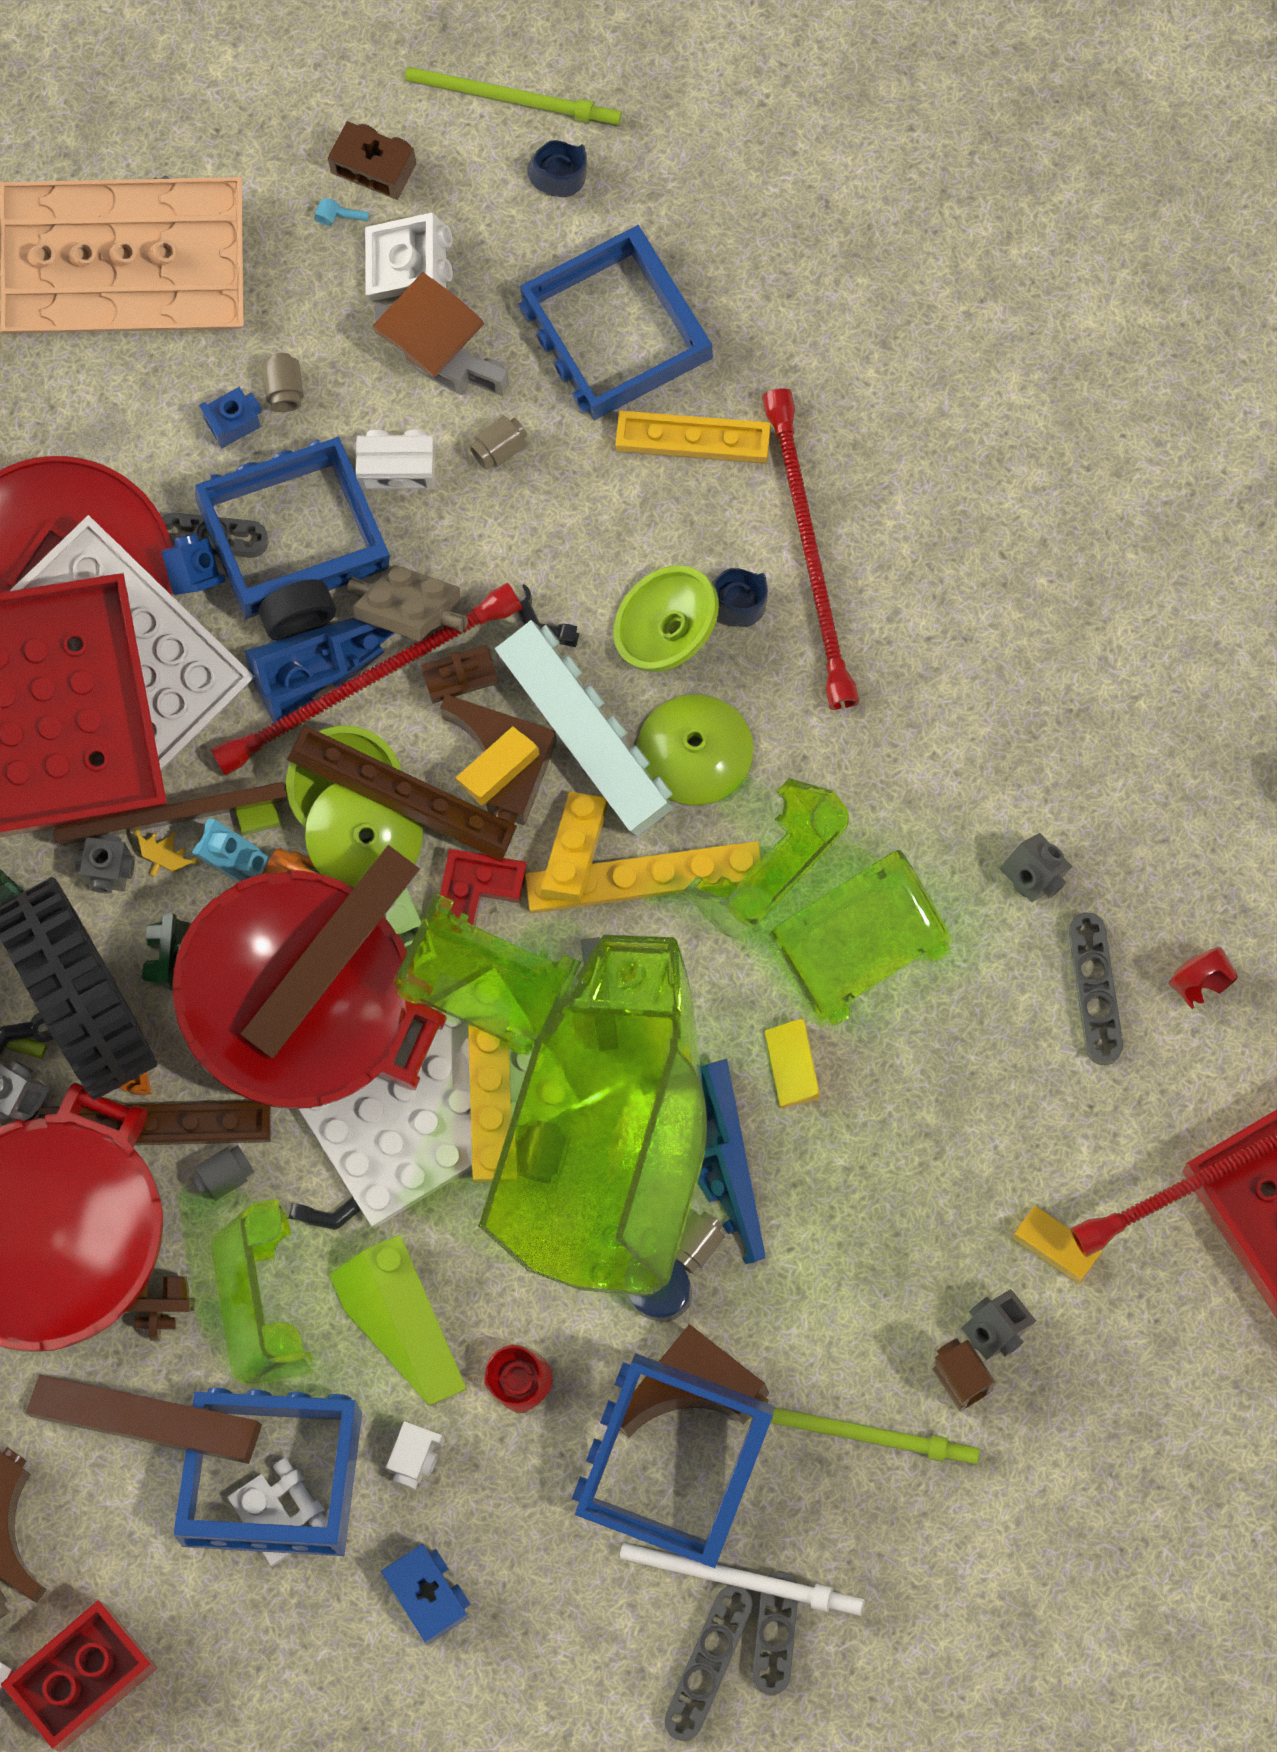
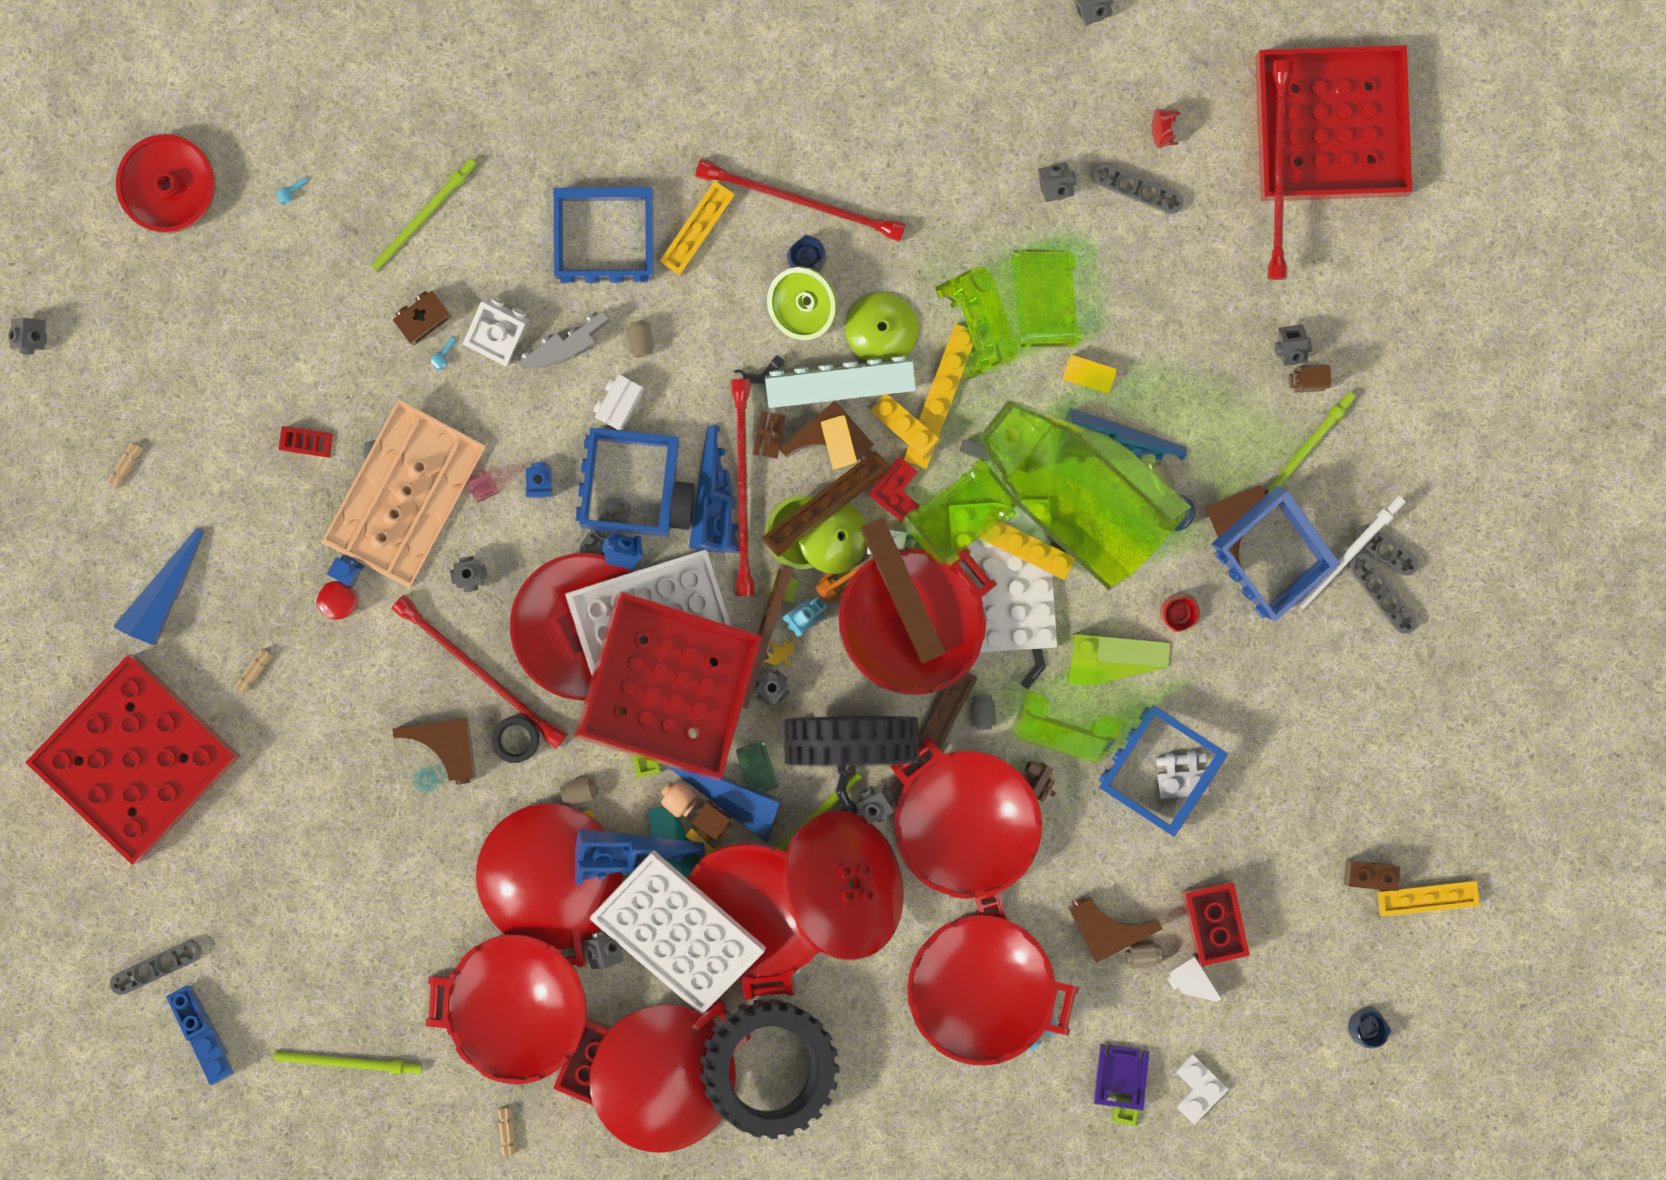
camera: 65 degrees left, 15 degrees up
(55, 391) = (478, 574): none -> dark grey brick
(119, 85) = (284, 439): none -> red slope
(144, 1419) = (1099, 821): reddish brown tile -> none
(168, 938) = (845, 673): dark green hips -> none
(185, 350) = (482, 487): none -> clear pink tile
(282, 382) = (534, 441): dark tan brick -> none
(405, 1579) = (1282, 726): blue brick -> none
(407, 603) = (711, 441): dark tan plate -> none
(413, 1455) = (1192, 689): white brick -> none
(428, 324) = (552, 340): dark orange slope -> none
(558, 168) = (486, 214): dark blue hair -> none
(1054, 1244) = (1261, 291): yellow slope -> none

